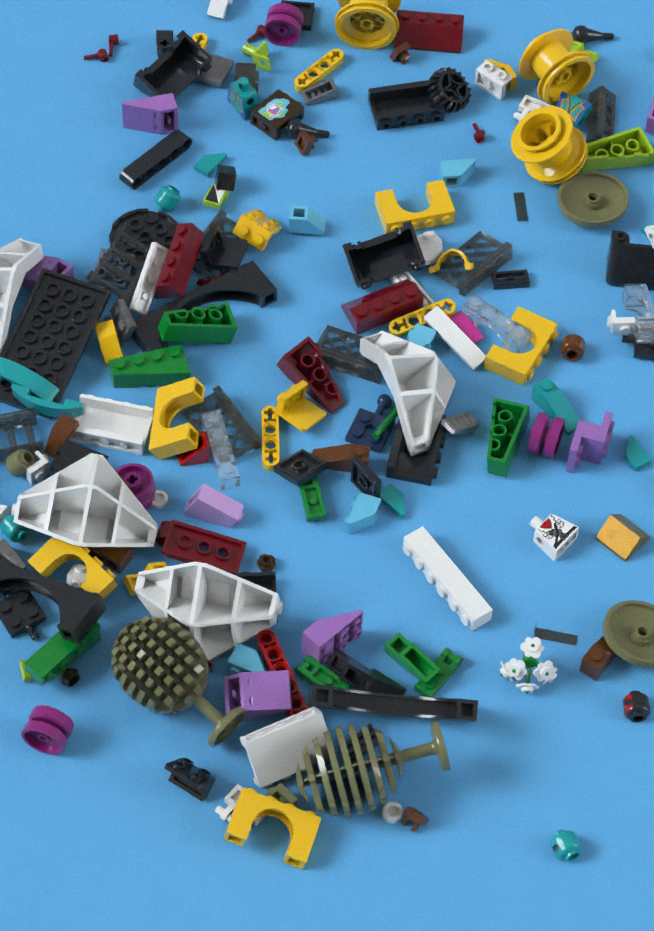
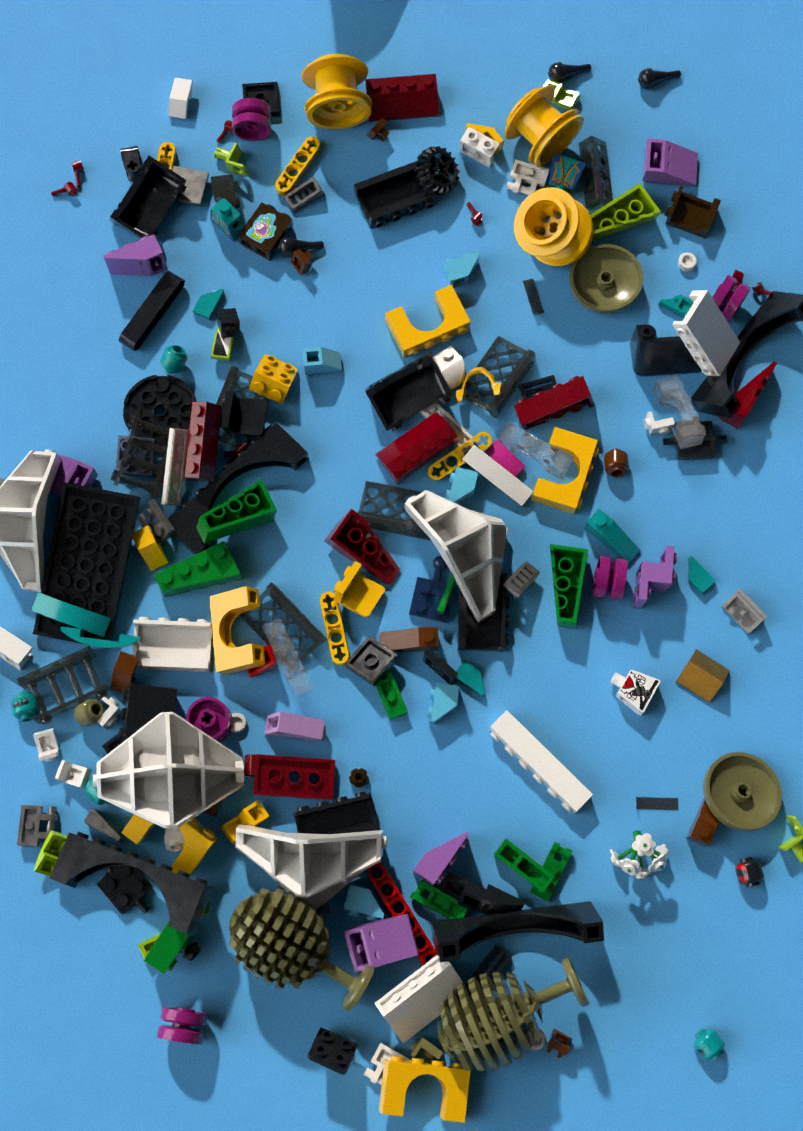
camera: 10 degrees left, 20 degrees up
(524, 288) = (554, 403): none -> dark red wedge

